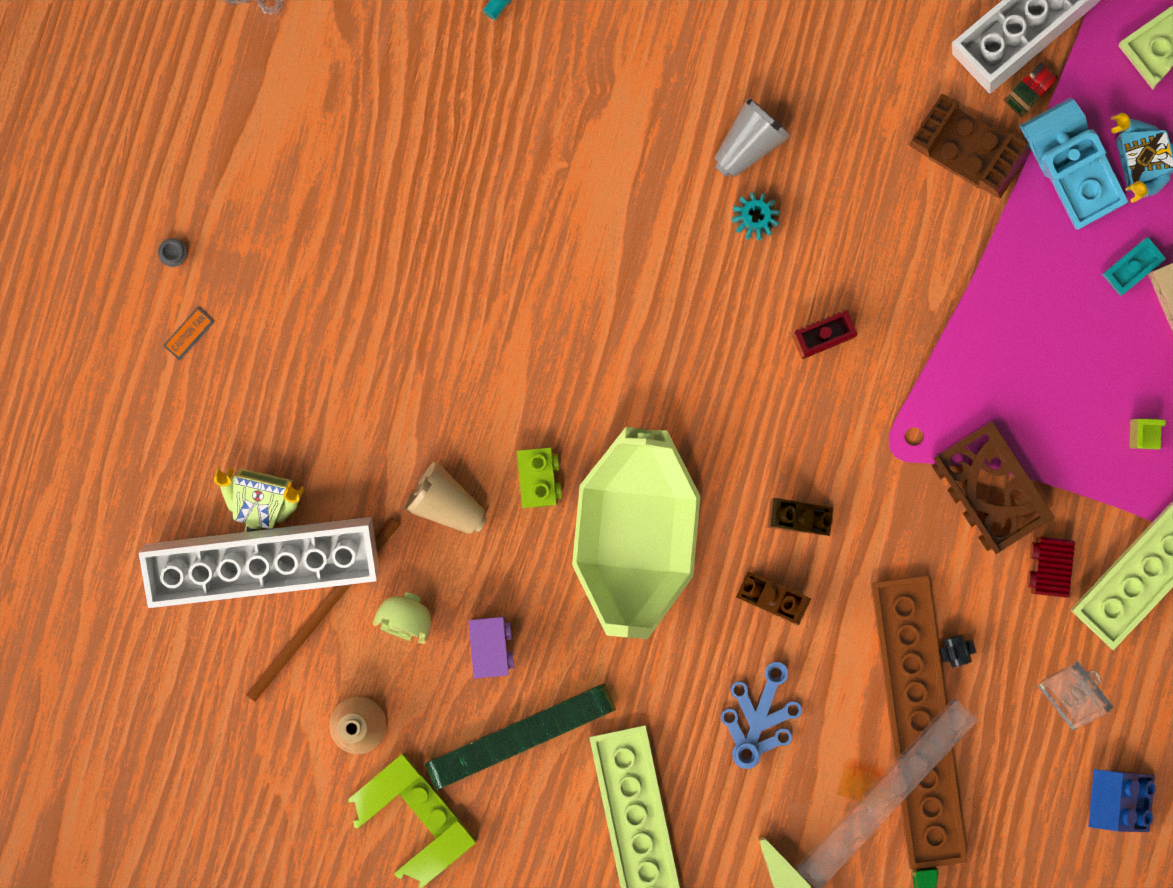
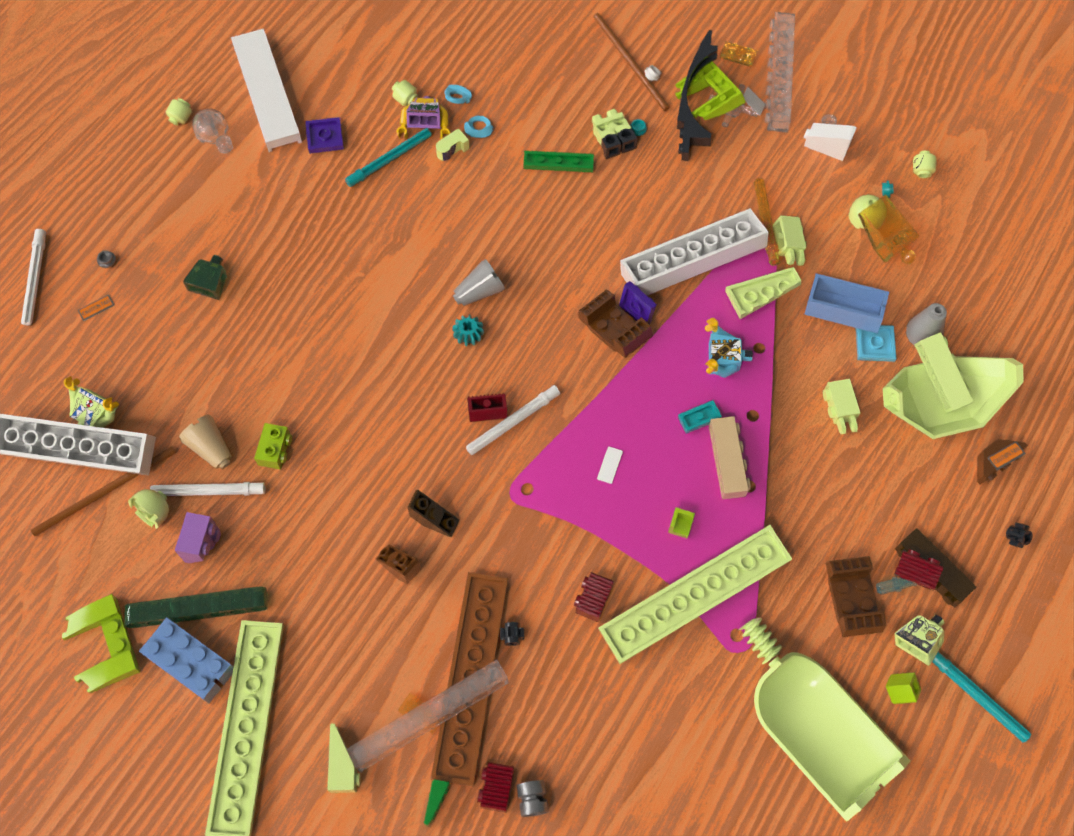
camera: 15 degrees right, 20 degrees down
(61, 262) = (38, 246): none -> white axle
(339, 240) = (207, 278): none -> clear green torso
(369, 721) = (91, 568): tan cone -> none
(469, 566) = (211, 489): none -> white axle
(538, 811) = (187, 660): none -> medium blue piece
(636, 532) = (322, 492): yellowish green panel -> none
(759, 720) = (362, 643): medium blue plant -> none
(896, 293) = (542, 399): none -> white axle
(996, 107) = (637, 303): none -> dark purple plate
(997, 855) = (496, 787): none -> dark red brick
(1023, 372) = (609, 465): none -> white sticker
(1029, 502) = (591, 546): reddish brown fence -> none
(1030, 89) = (666, 303): leg -> none
(1048, 856) = (532, 798): none -> flat silver wheel
(1074, 162) = (677, 344): medium azure piece -> none
(1076, 695) = (585, 686): clear tile -> none
(1121, 801) = (597, 773): blue slope -> none

